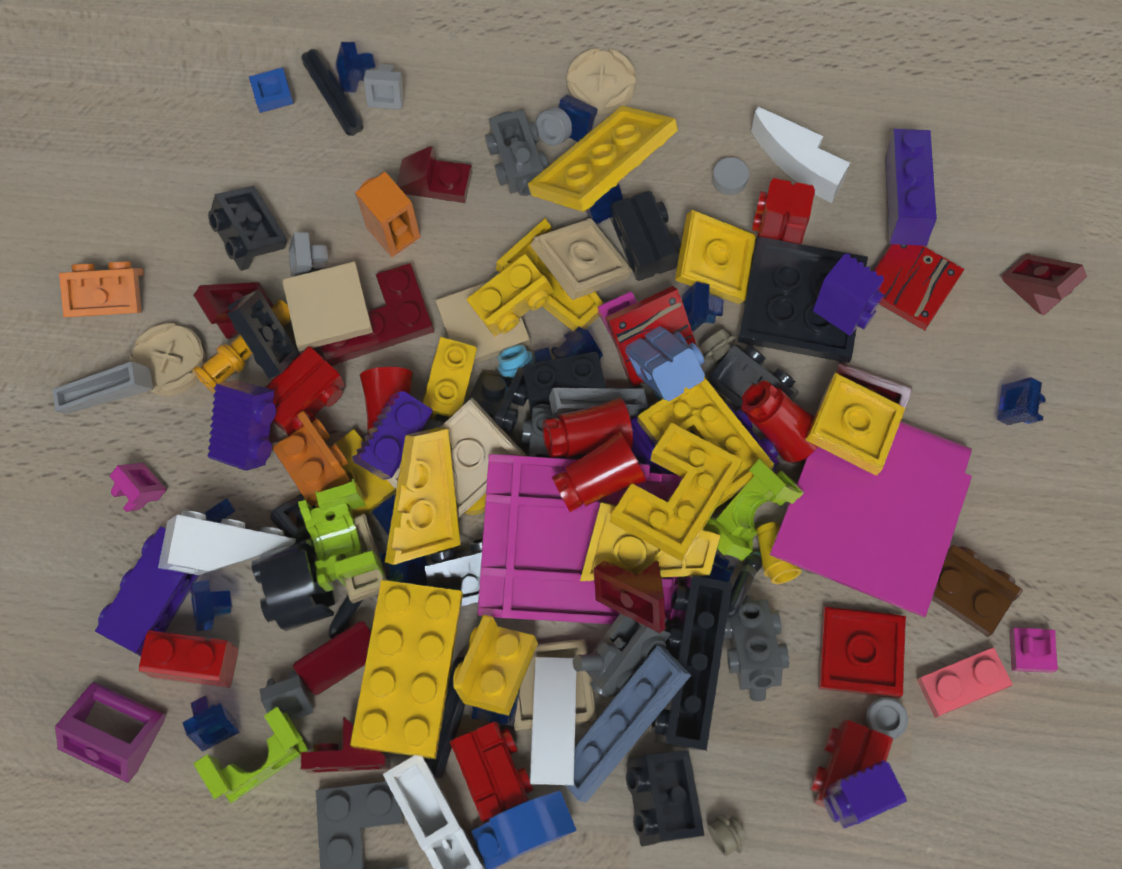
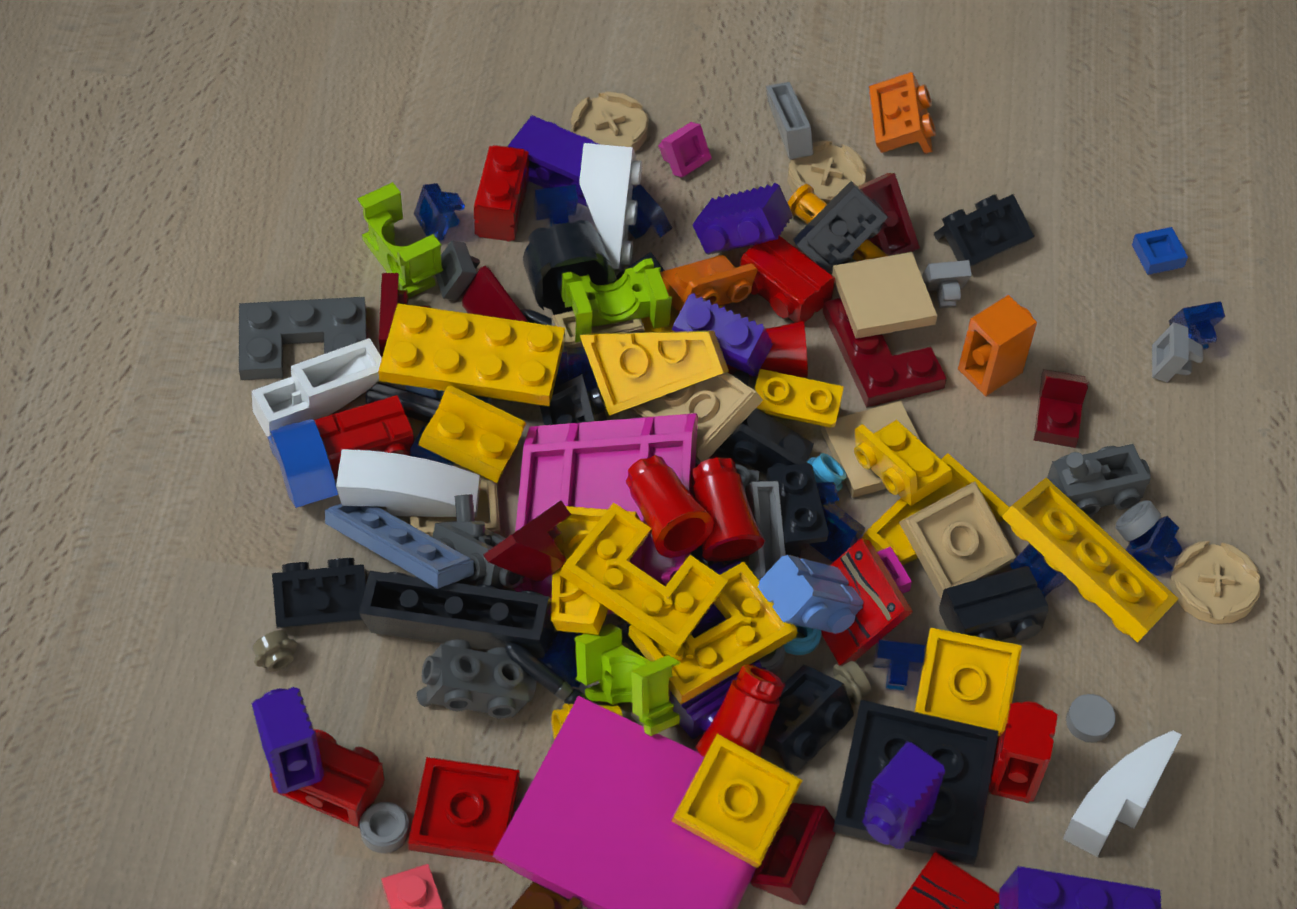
camera: 85 degrees right, 15 degrees down
(92, 561) = (611, 120): none -> tan tile
(100, 748) = (446, 111): magenta tile -> none
(332, 92) = (1164, 308): black axle -> none

